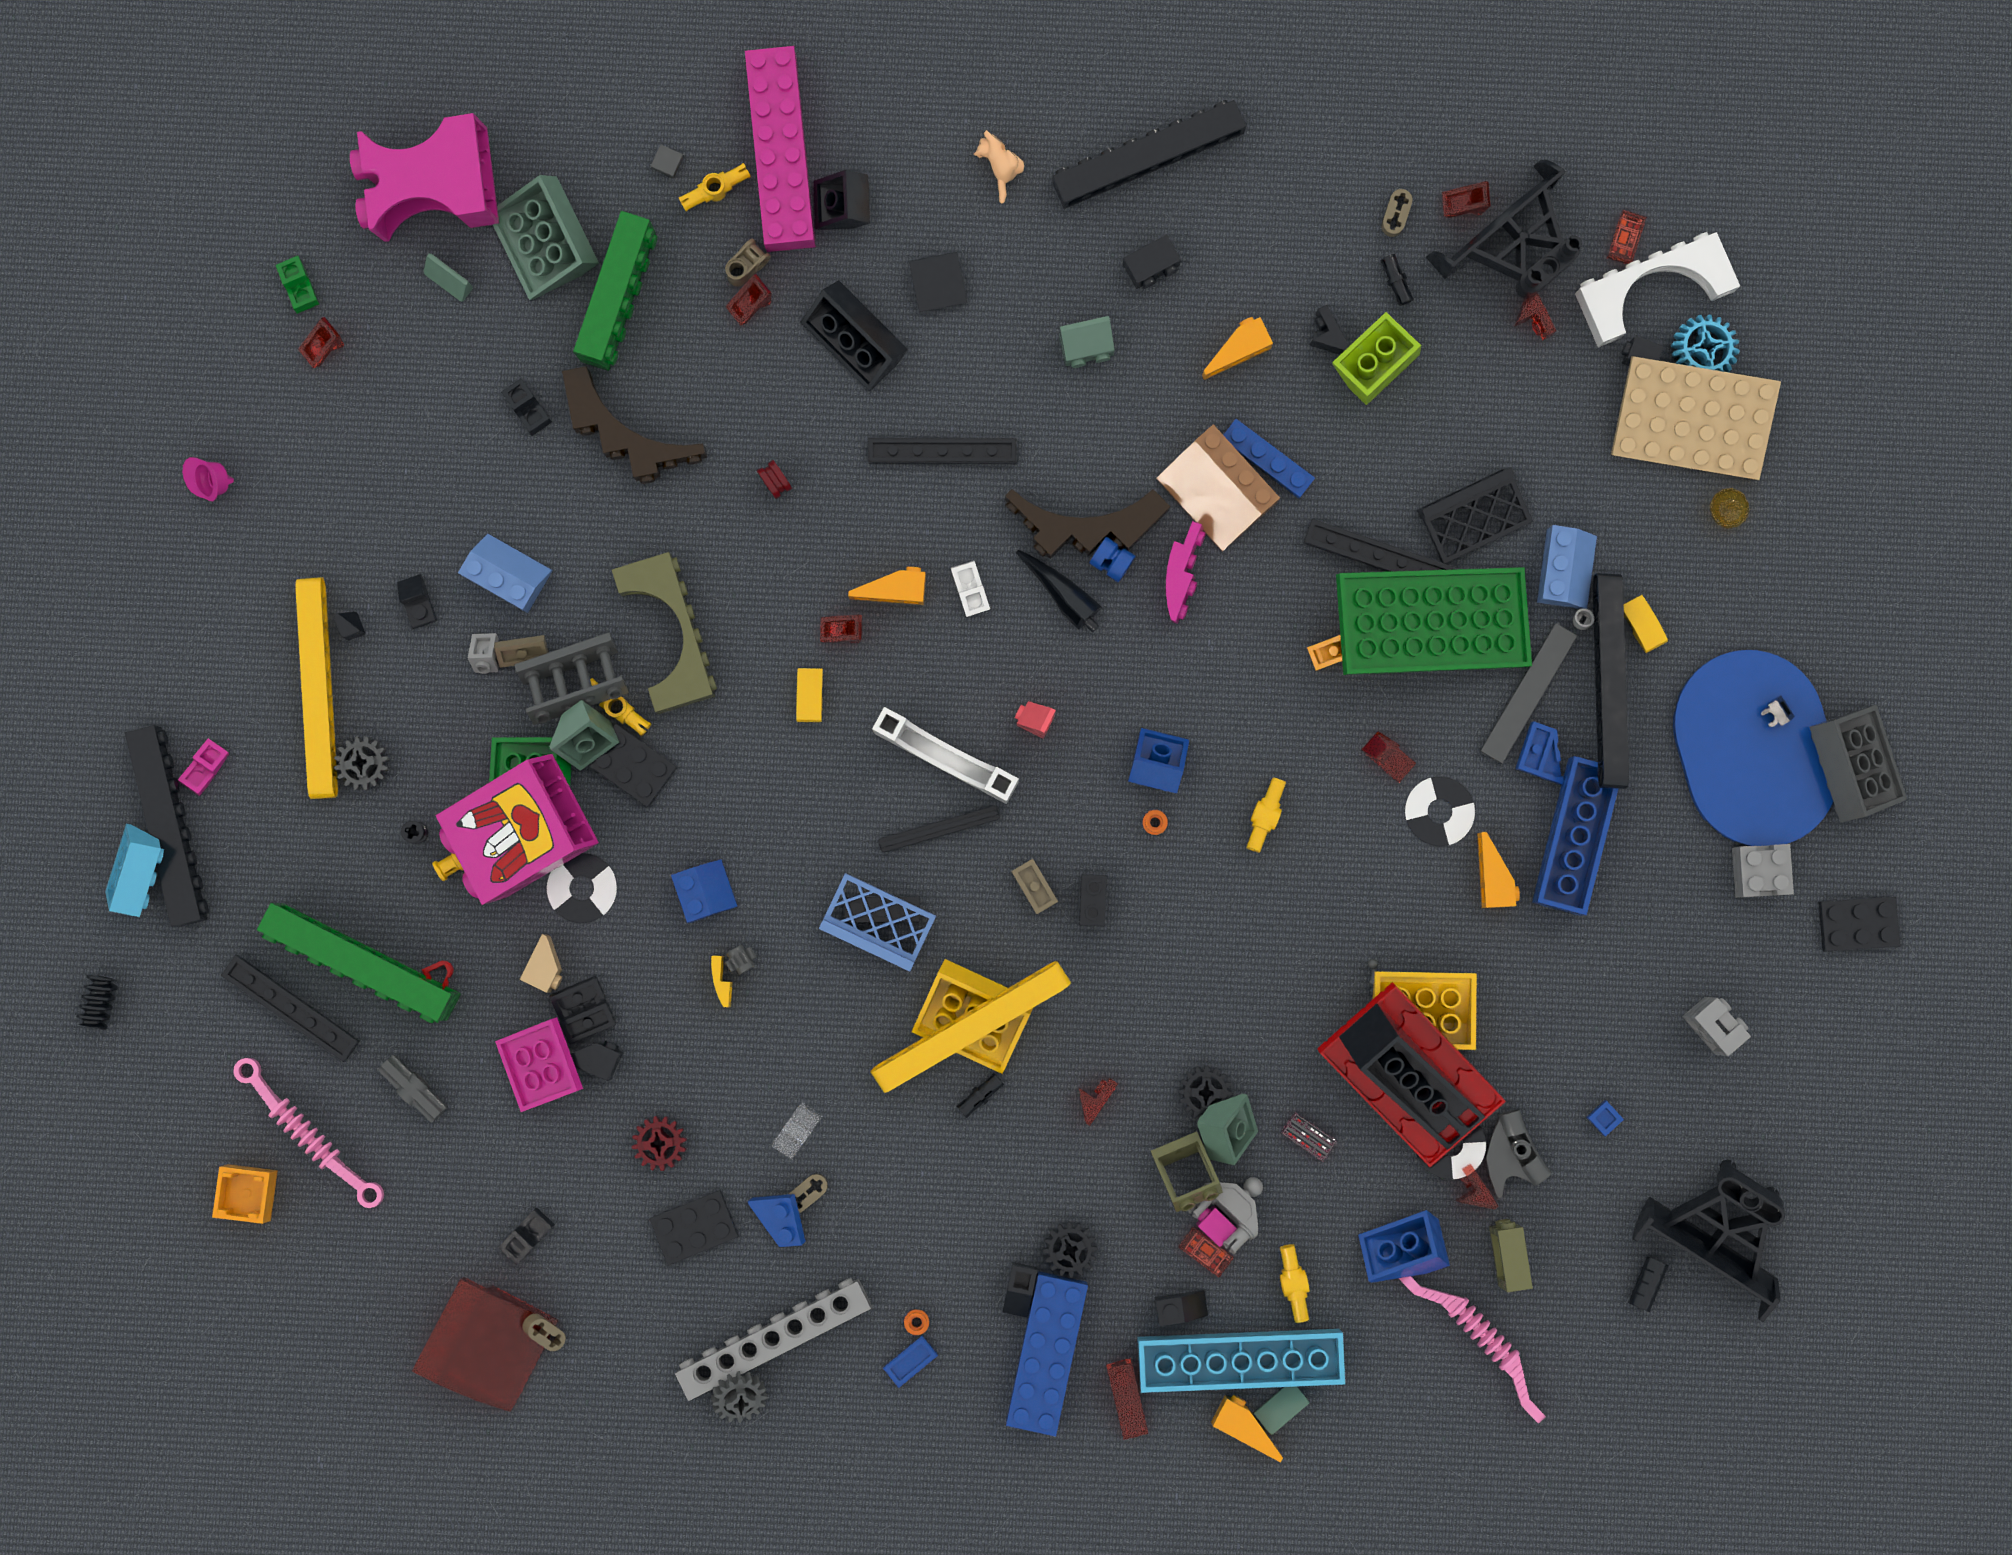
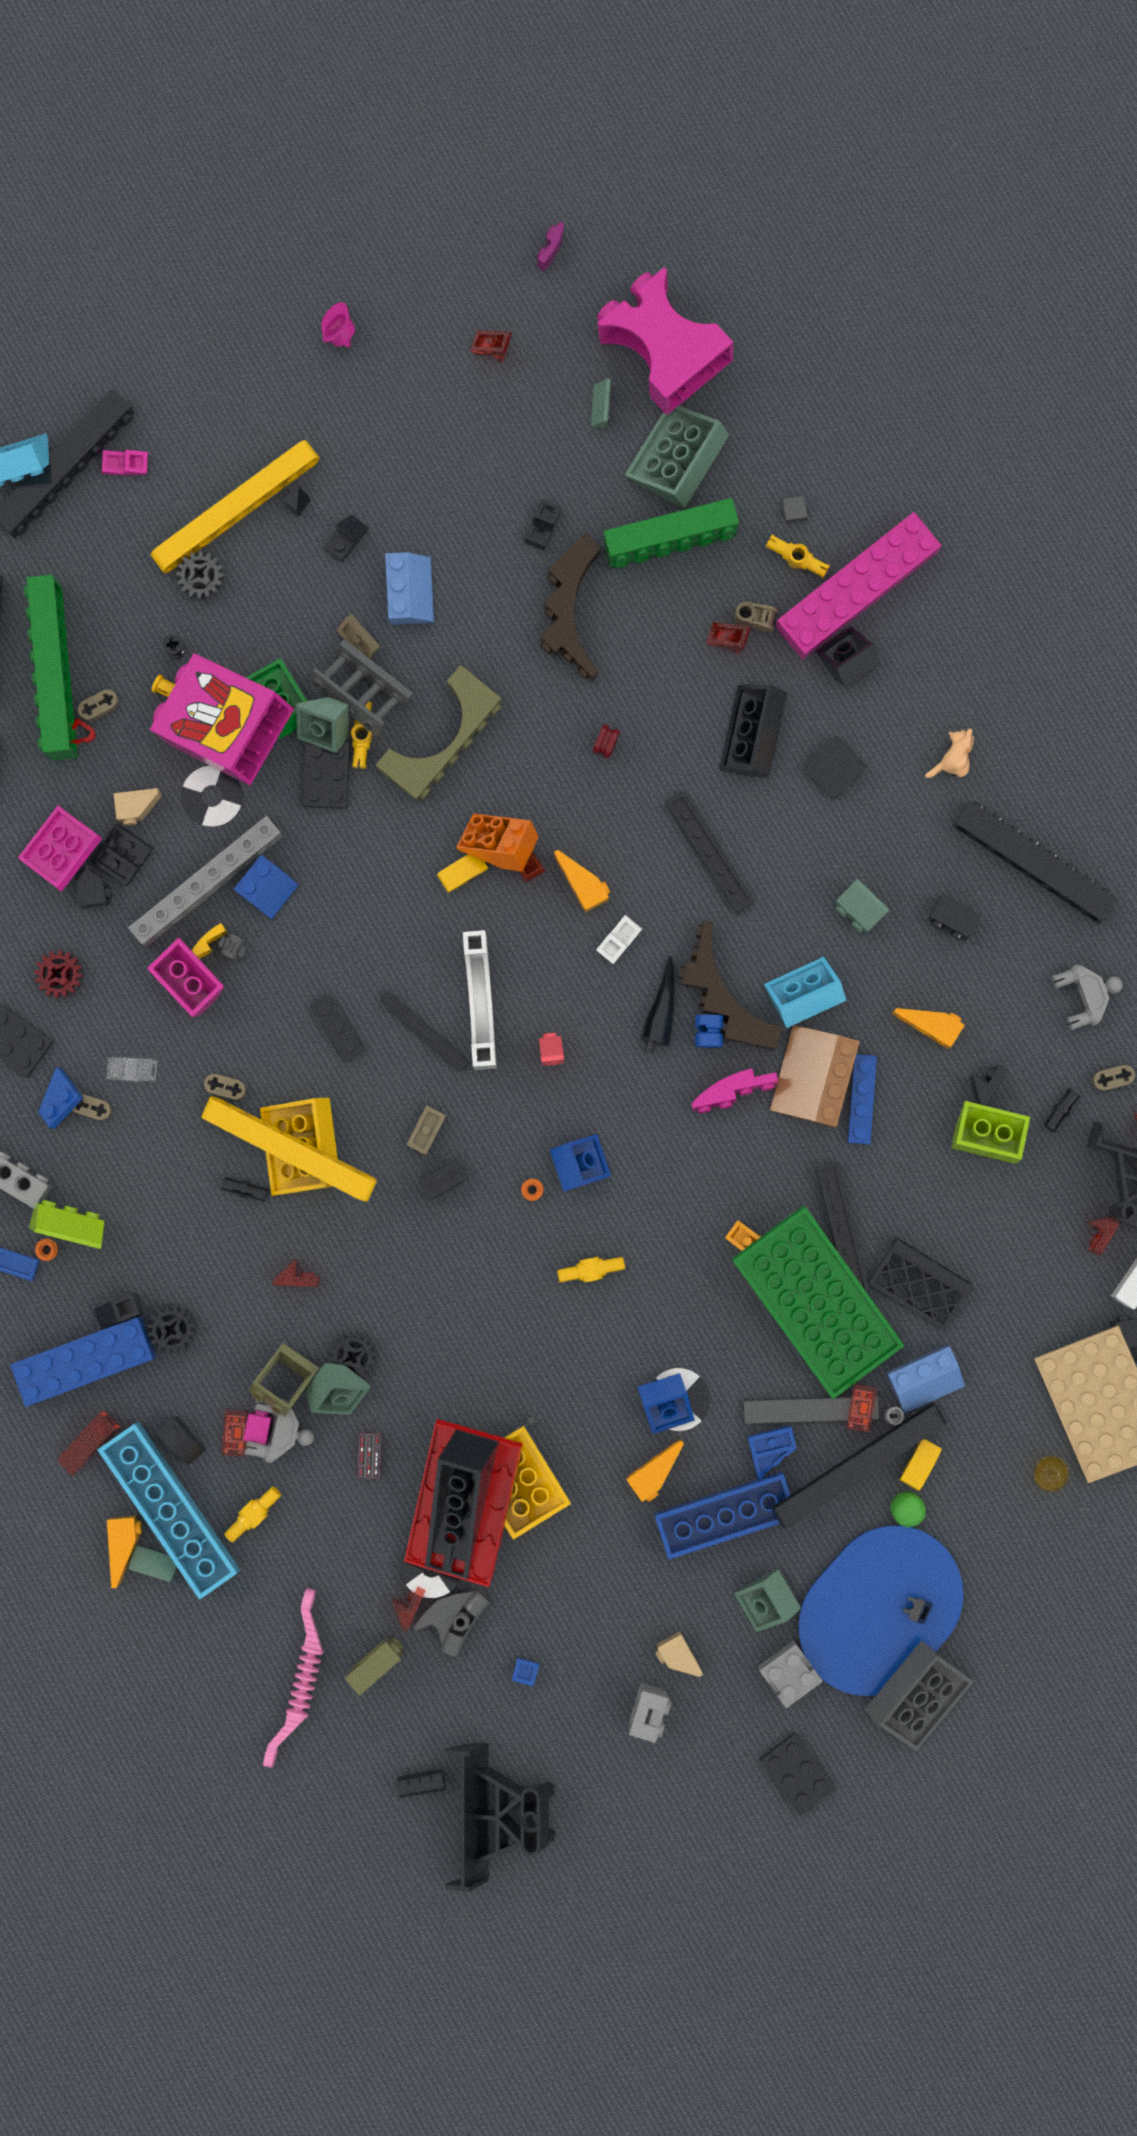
camera: 55 degrees right, 0 degrees up
(261, 223) = (553, 242): none -> magenta slope
(297, 284) = (525, 299): green slope -> none
(417, 940) = (96, 700): none -> dark tan beam
(482, 653) = (337, 610): light grey bracket -> none
(661, 945) = (205, 882): none -> light grey brick
(743, 1021) = (186, 978): none -> dark pink slope
(803, 641) = (499, 840): none -> orange slope
(866, 1046) = (223, 1091): none -> dark tan beam
(867, 941) = (305, 1033): medium blue fence -> none
(907, 1285) = (67, 1224): none -> lime slope
(1133, 445) = (805, 992): none -> medium azure slope
(1306, 180) = (1092, 992): none -> light grey connector
(1388, 756) = (695, 1334): clear red slope -> none
(1404, 1248) = (330, 1580): blue slope -> none
(1437, 824) = (666, 1403): none -> blue slope
(1557, 644) = (861, 1407): none -> clear red tile
(1678, 662) = (908, 1509): none -> bright green hair
(1679, 964) = (677, 1655): none -> tan slope
(1682, 848) = (767, 1601): none -> sand green slope

